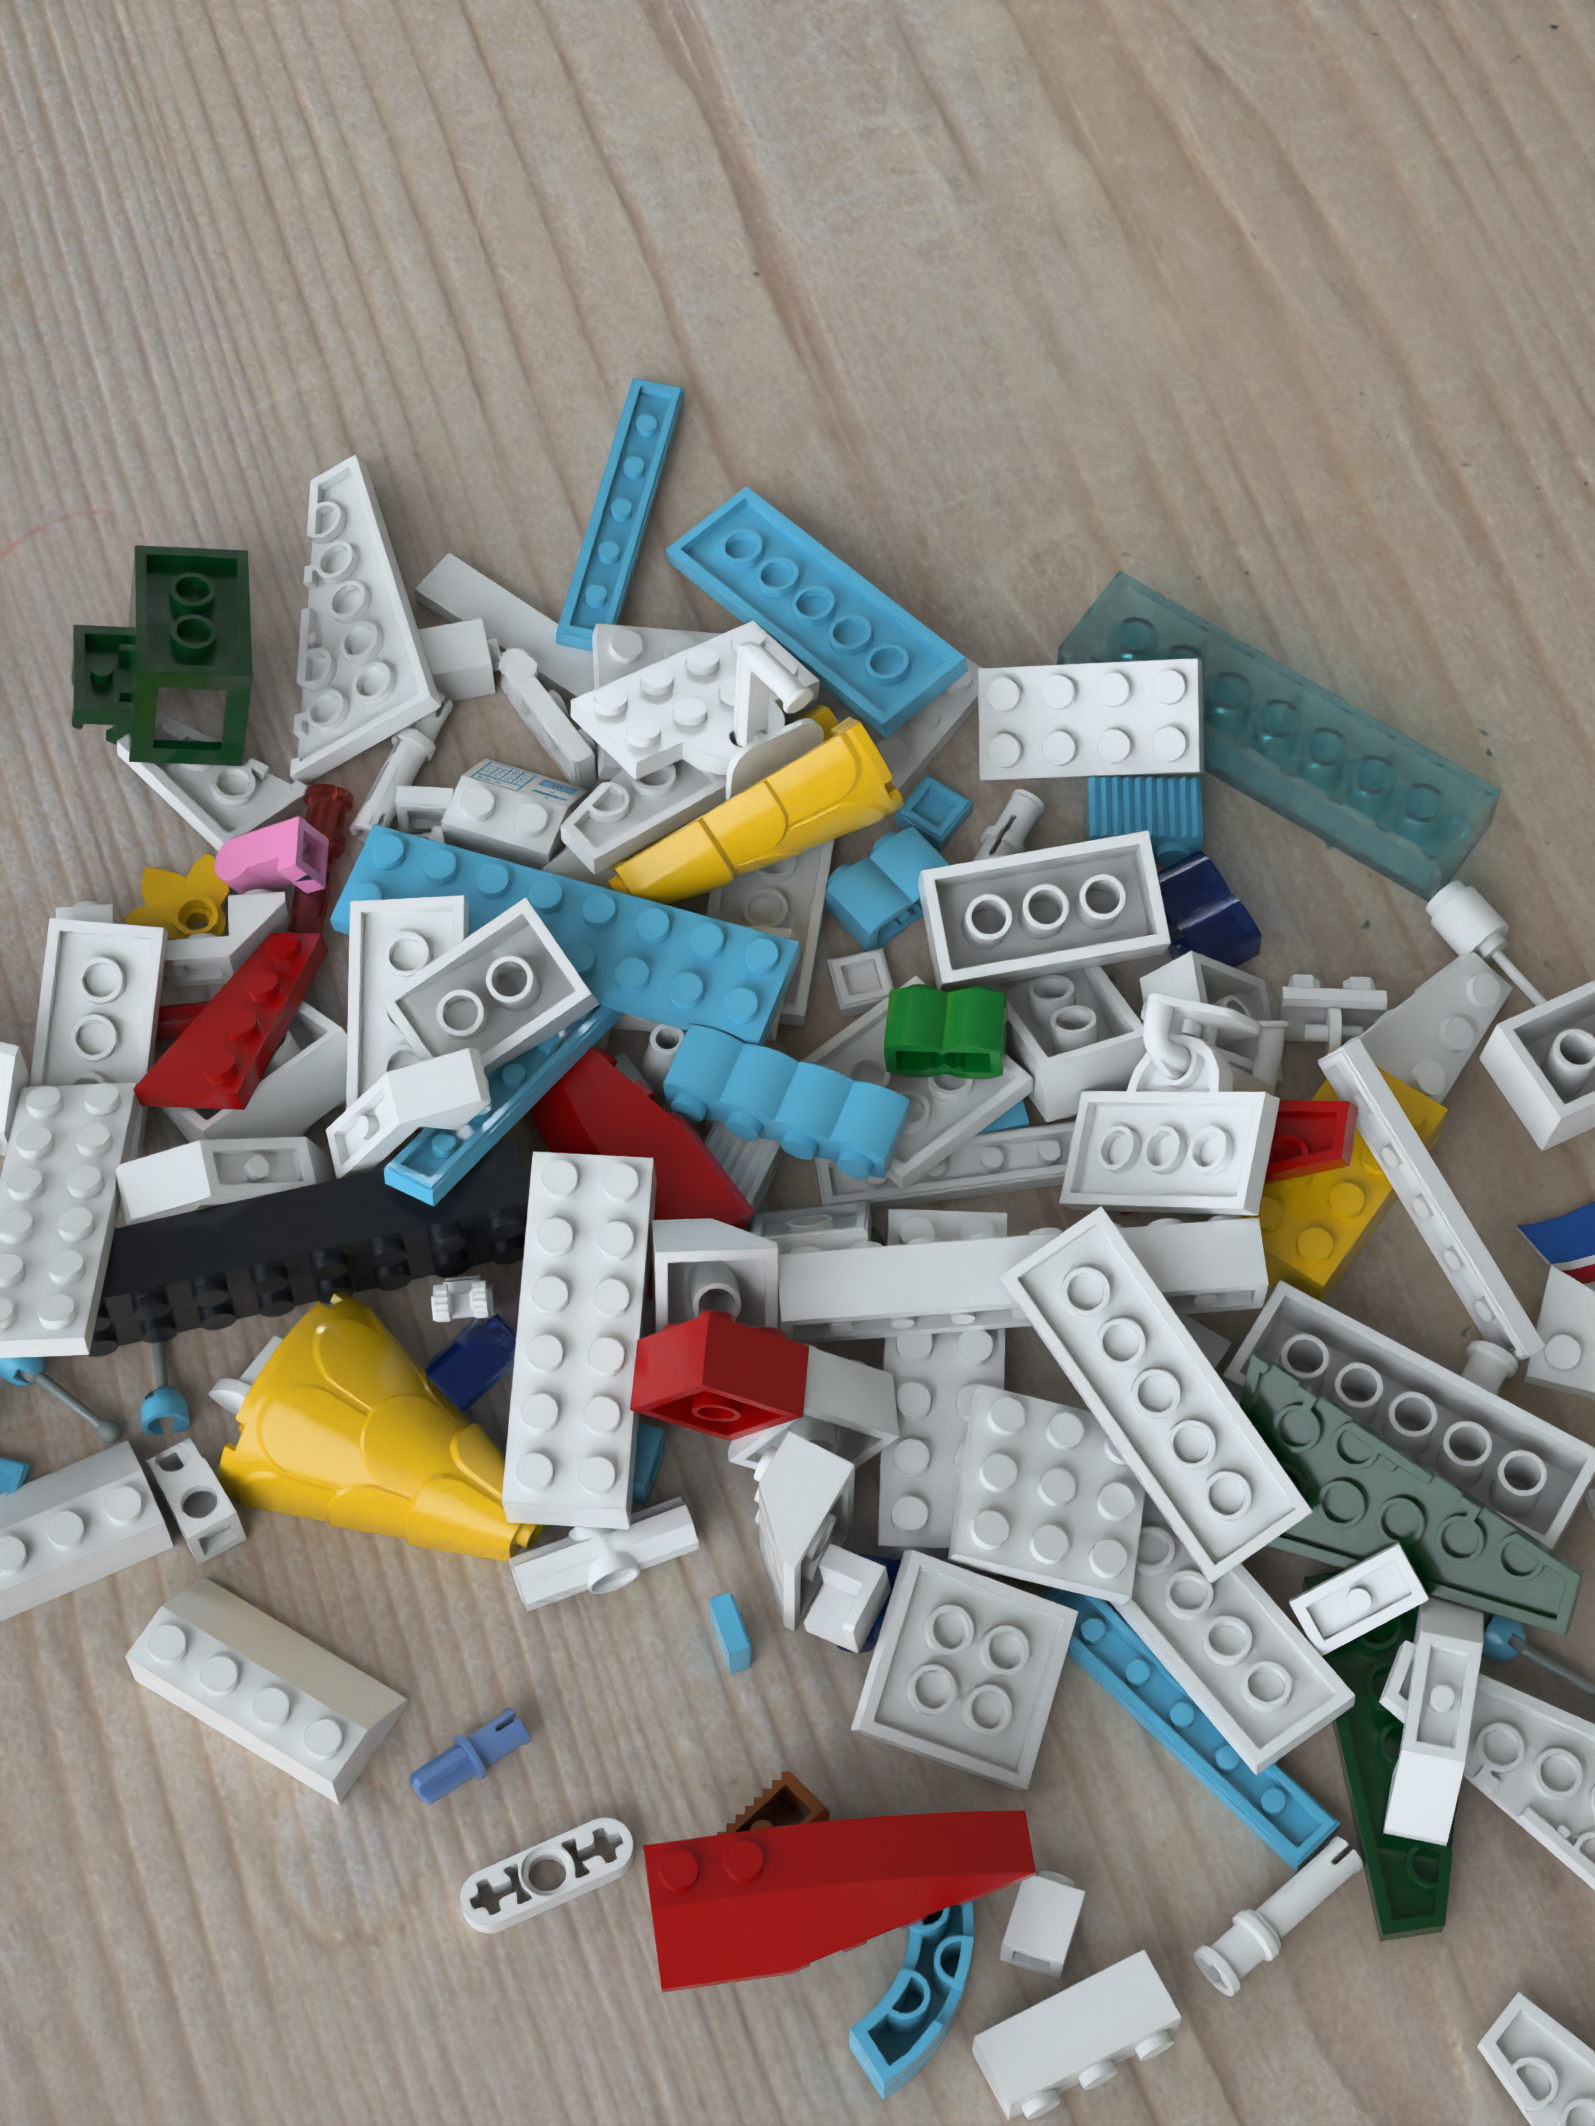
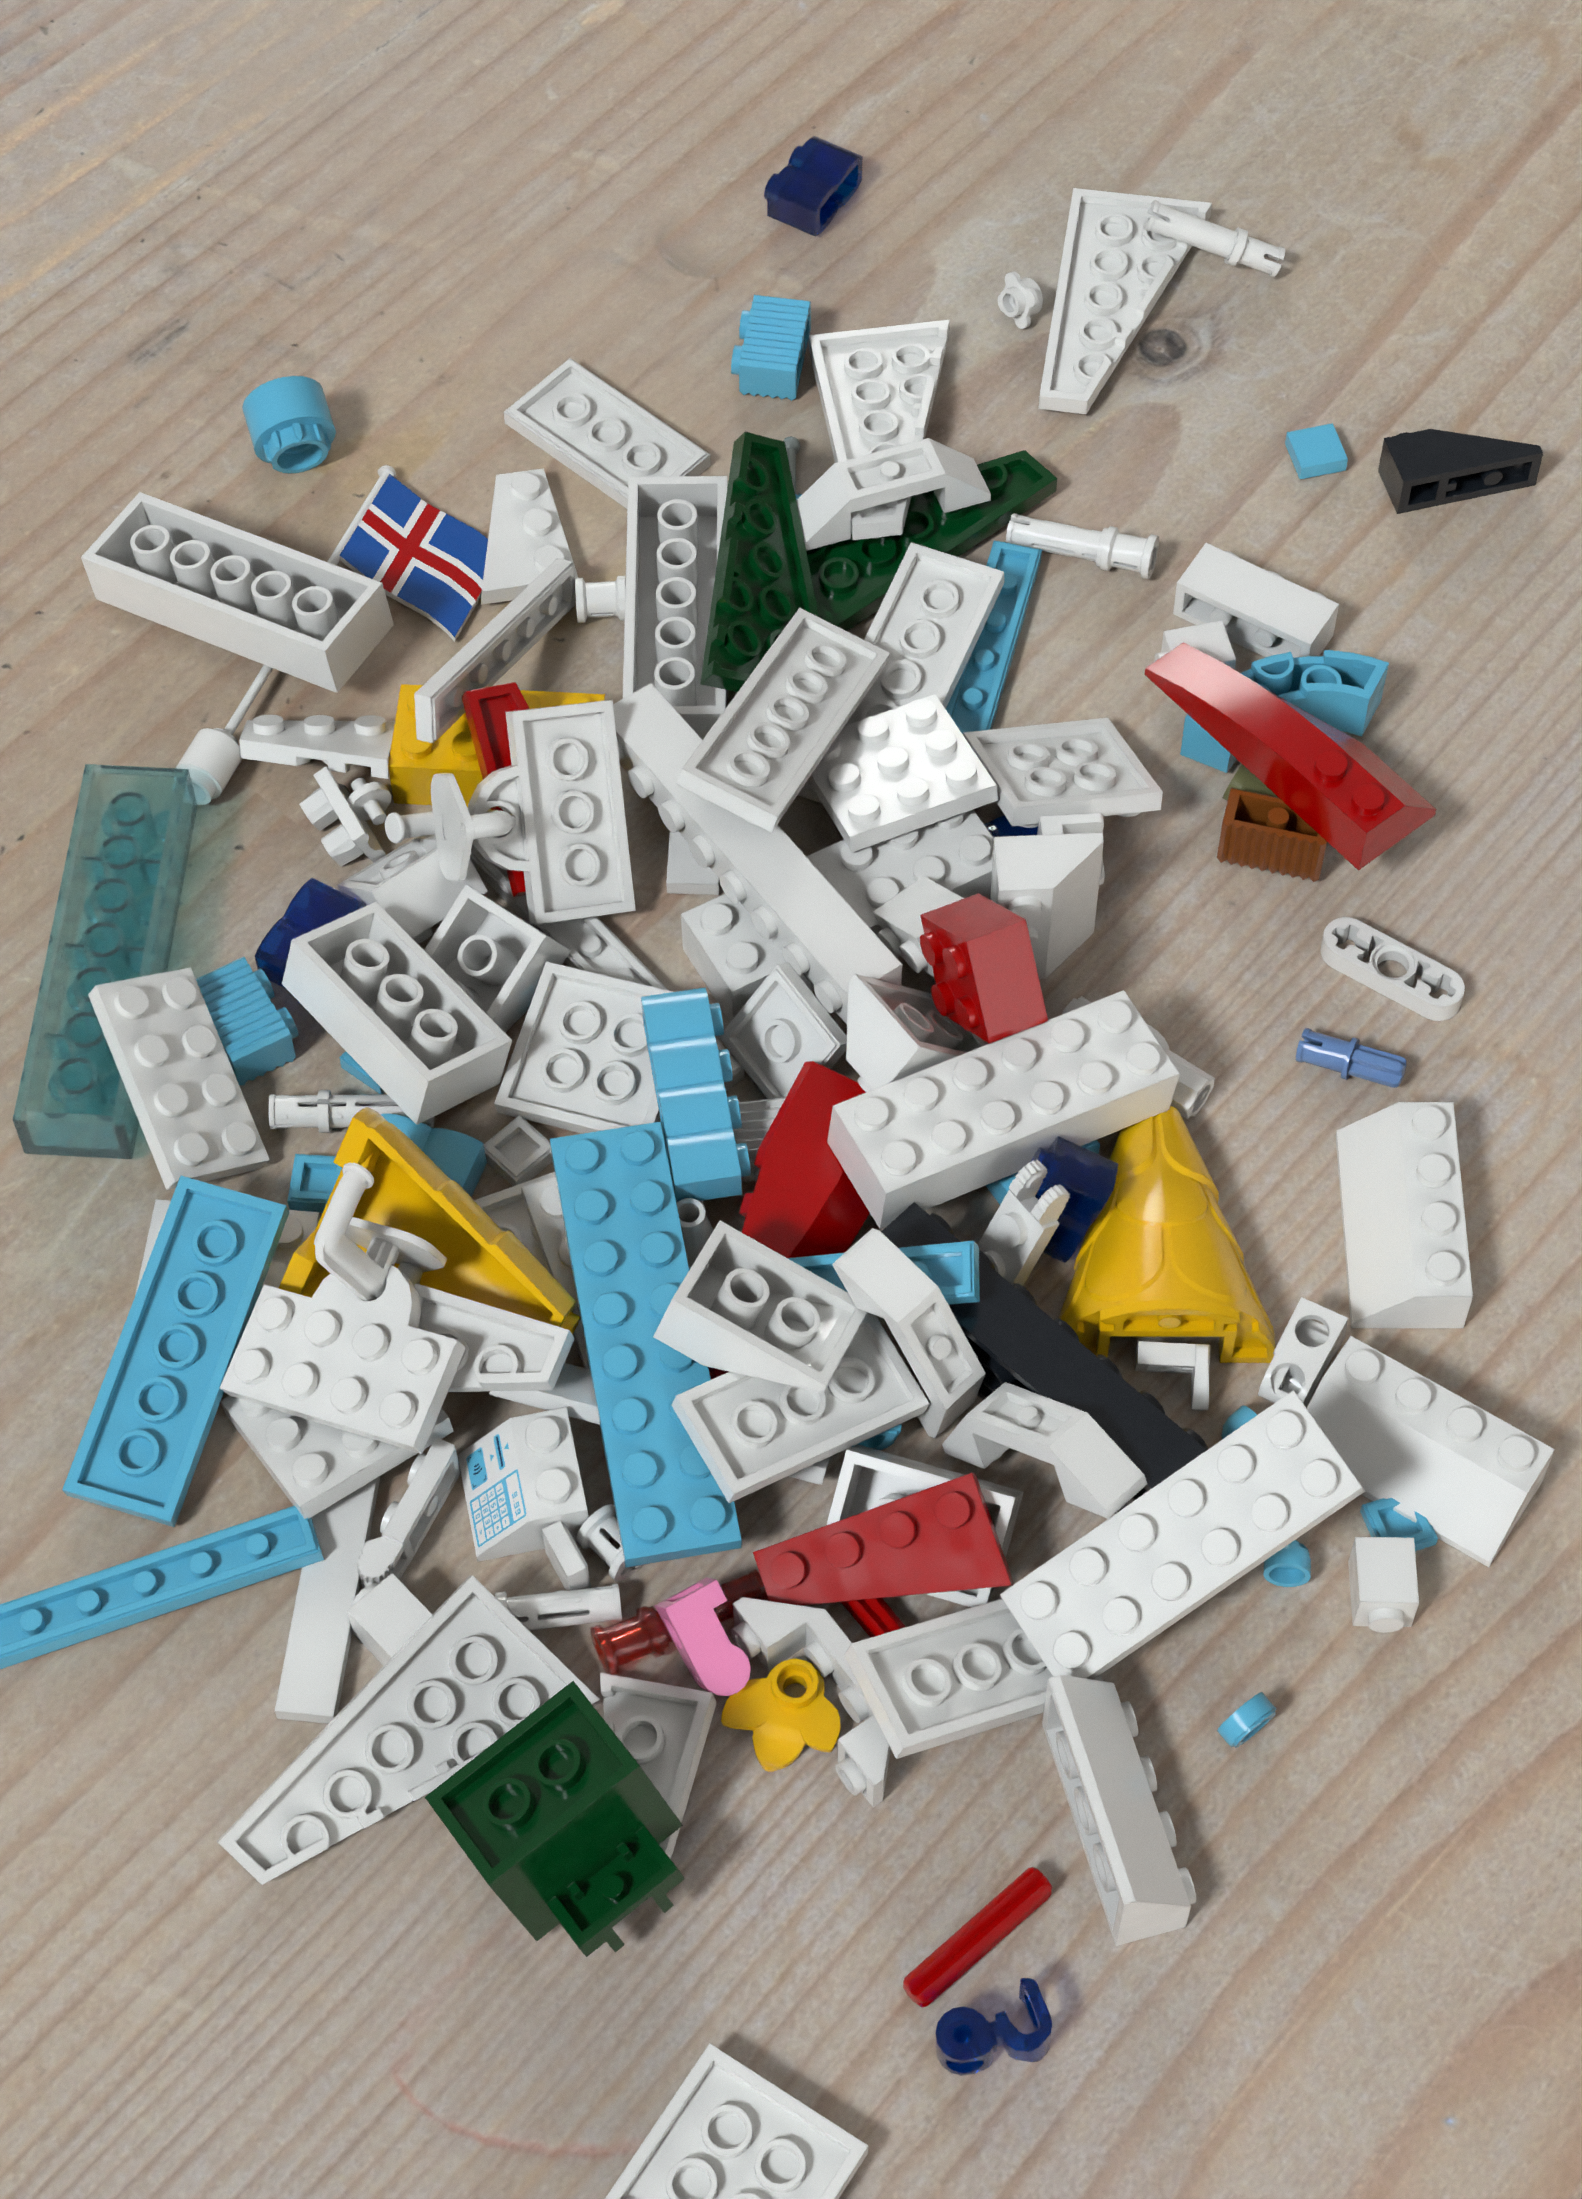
camera: 120 degrees left, 5 degrees down
(730, 1632) = (1133, 943): medium azure tile -> none
(946, 1032) = (549, 1026): green brick -> none
(1359, 1599) = (839, 568): white plate -> none

